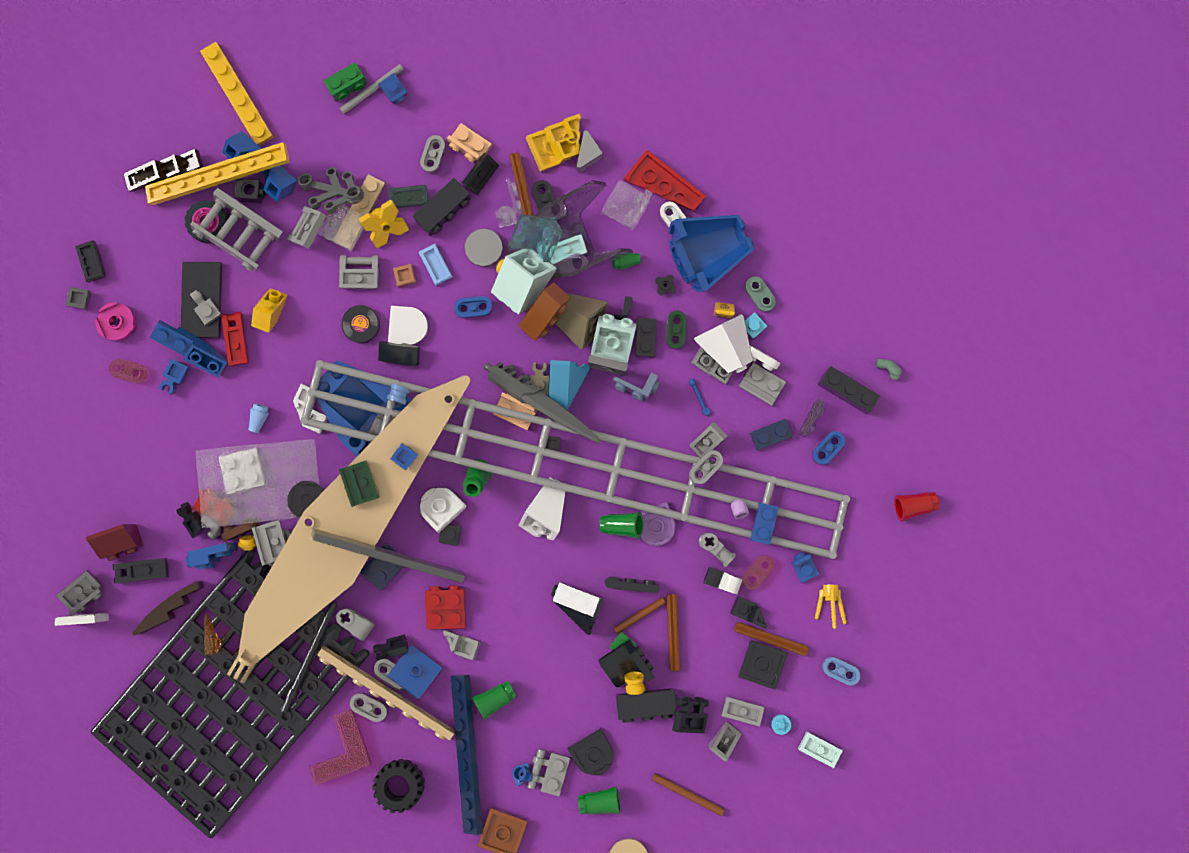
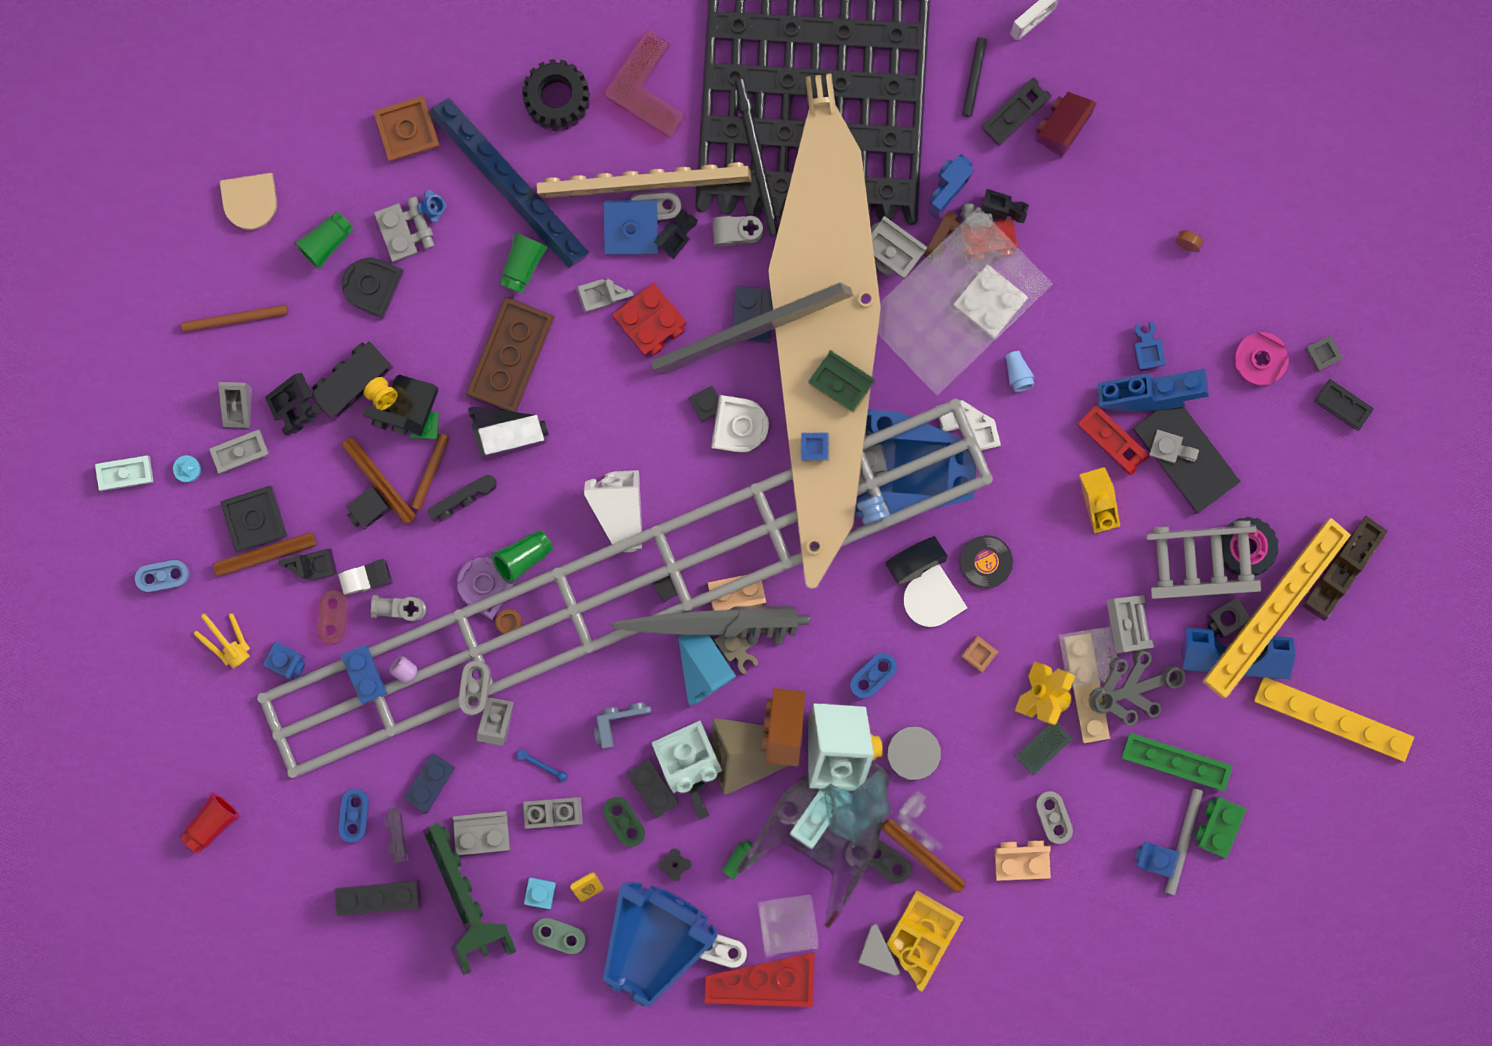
camera: 145 degrees right, 0 degrees up
(80, 592) = (1061, 40): flat silver bracket -> none
(101, 419) = (1189, 241): none -> dark orange tile
(127, 371) = (1205, 317): clear pink plate -> none
(136, 620) = (974, 77): none -> black bar
(164, 611) = (954, 87): dark brown slope -> none
(211, 640) = (874, 95): clear orange plate -> none
(247, 542) = (922, 228): yellow plate -> none
(302, 496) = (896, 323): black tile -> none
(341, 134) = (1176, 762): none -> green plate
(359, 277) = (1028, 611): light grey plate -> none
(369, 707) = (652, 150): light grey plate -> none
(435, 264) = (954, 692): light blue tile -> none
(442, 207) = (994, 763): black brick -> none
(476, 480) = (720, 482): green plant -> none
(480, 173) = (981, 835): black plate -> none
(542, 649) = (510, 355): none -> reddish brown tile
(607, 365) = (669, 721): flat silver tile -> none
(658, 493) = (508, 620): none -> dark orange tile
(692, 620) = (367, 508): none -> black brick
(728, 344) = (552, 847): white slope -> none
(768, 362) = (513, 861): white plate -> none
(807, 327) = (476, 933): none -> dark green hinge
(891, 366) = (349, 963): sand green arm -> none

